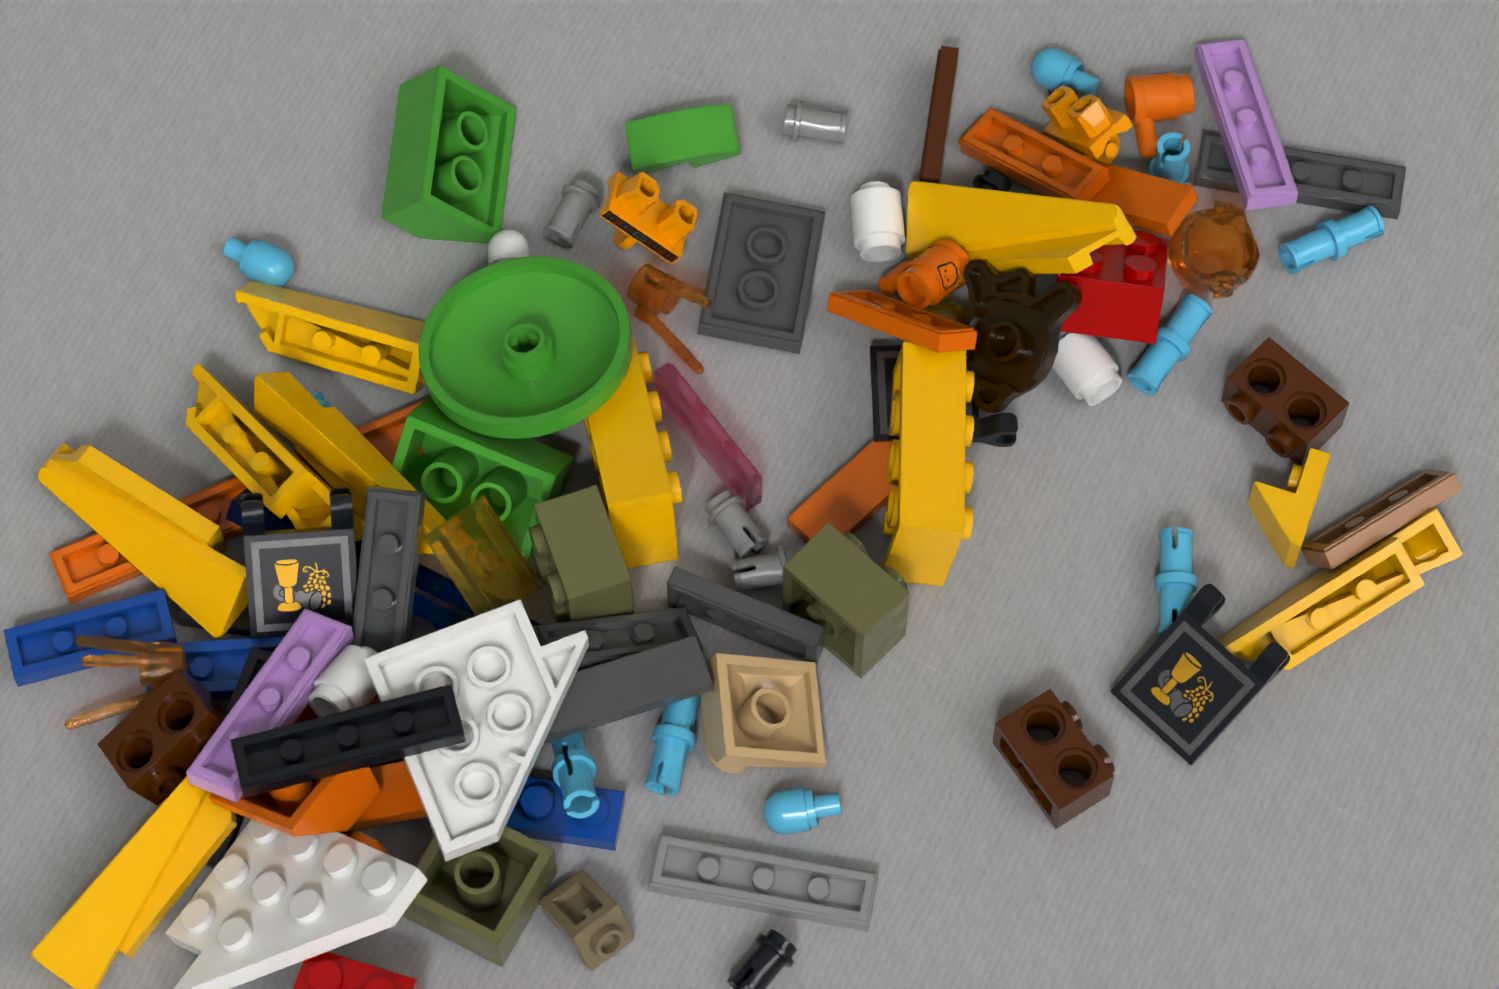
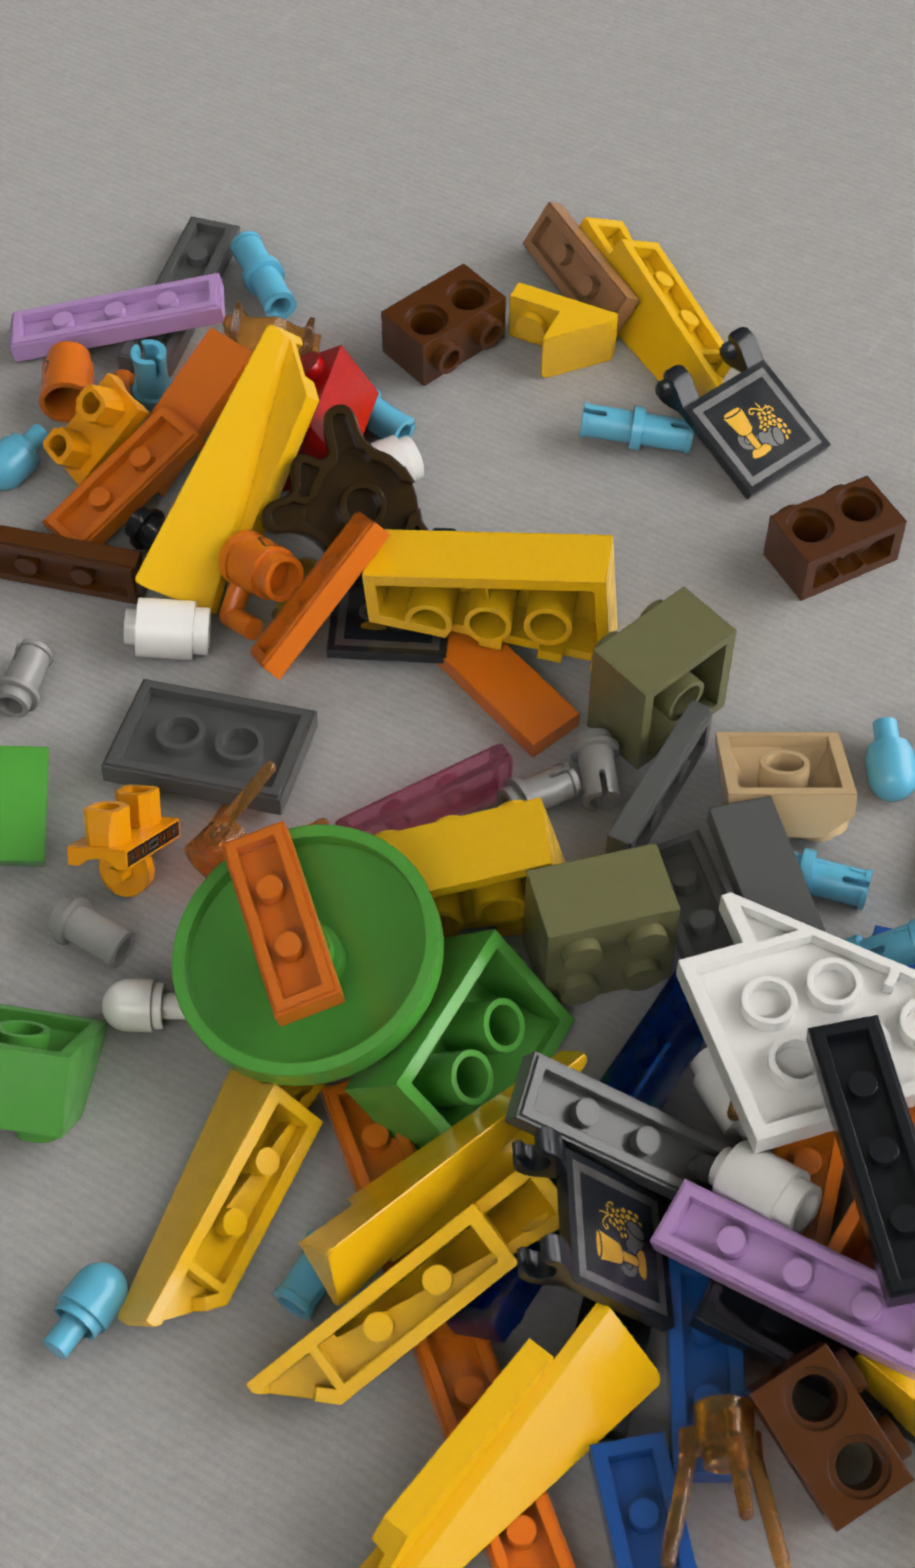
camera: 85 degrees left, 10 degrees down
(483, 558) = (595, 1028): clear yellow tile -> none
(539, 319) = (282, 924): none -> orange tile

